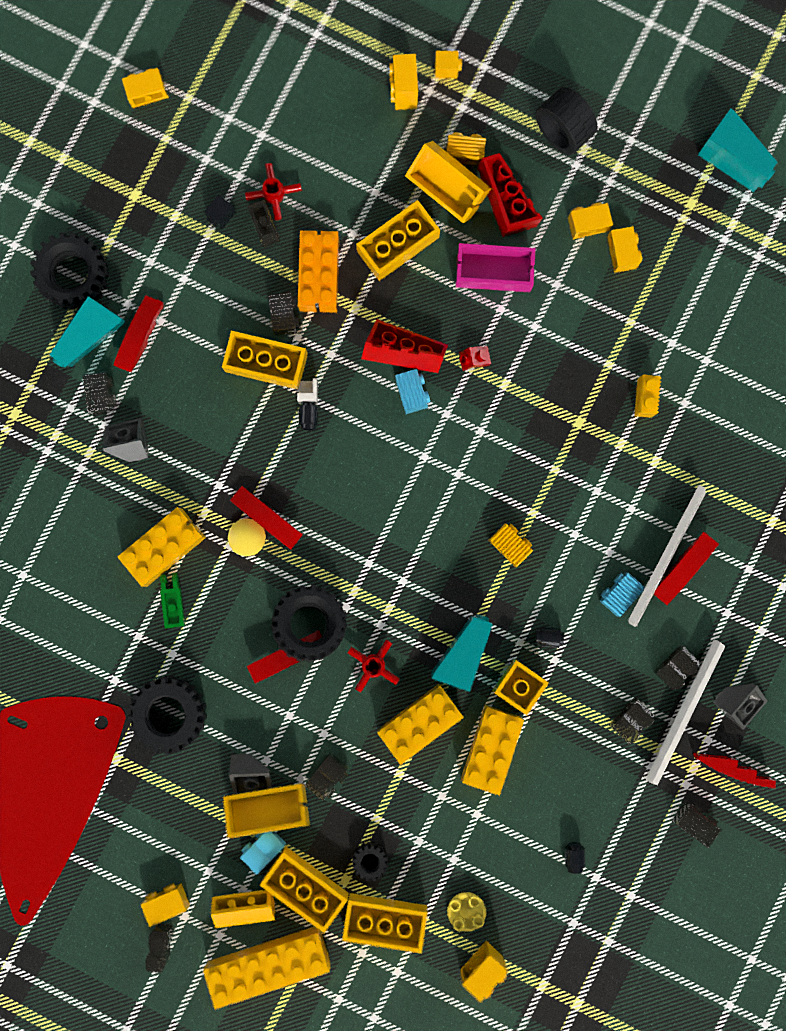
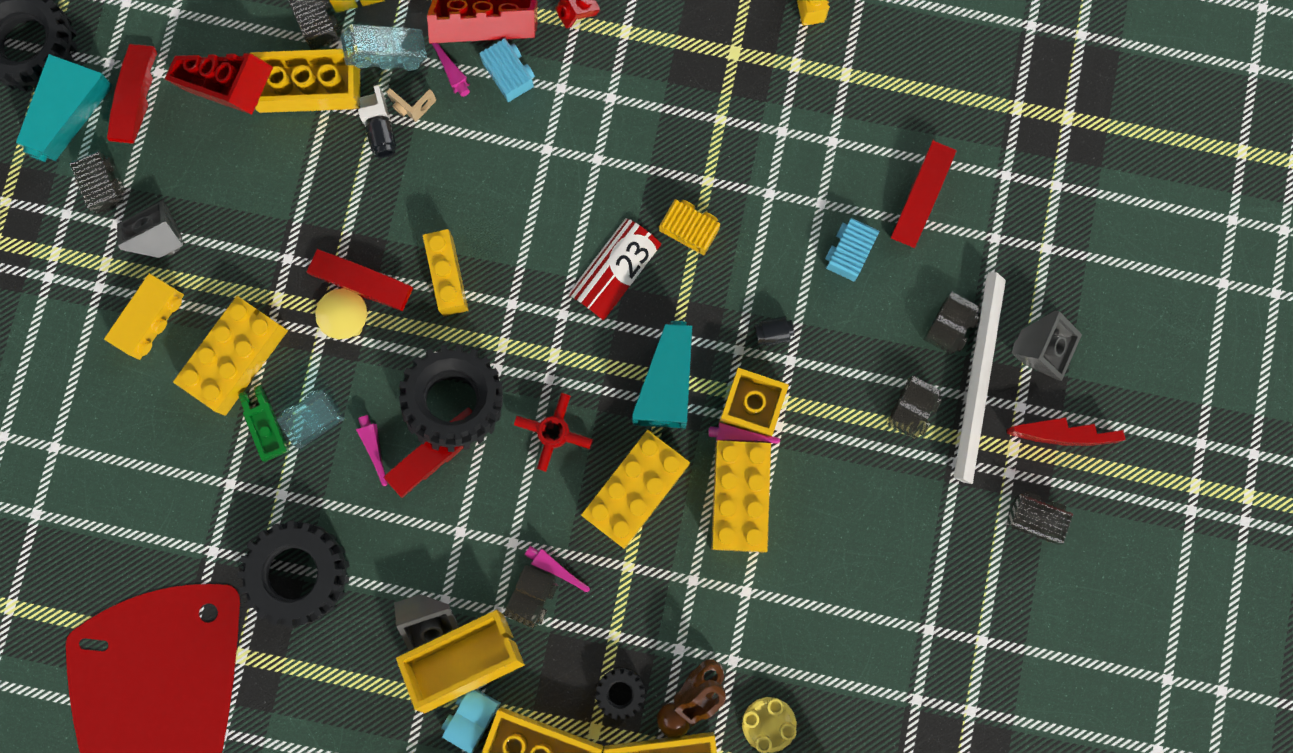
camera: 15 degrees left, 5 degrees down
(108, 501) = (144, 317): none -> yellow brick
(206, 607) = (310, 418): none -> clear light blue brick
(208, 348) = (225, 80): none -> red wedge
(243, 630) = (369, 437): none -> dark pink piece
(327, 353) = (383, 47): none -> clear light blue brick
(328, 529) = (445, 272): none -> yellow brick
(329, 398) = (413, 112): none -> tan bracket
(343, 755) = (545, 562): none -> dark pink piece
(373, 386) = (455, 76): none -> dark pink piece
(419, 882) = (693, 701): none -> reddish brown piece
(448, 558) = (615, 268): none -> sticker
(497, 702) = (730, 433): none -> dark pink piece
(575, 857) = (892, 609): black brick -> none
(667, 556) = (895, 185): white tile -> none

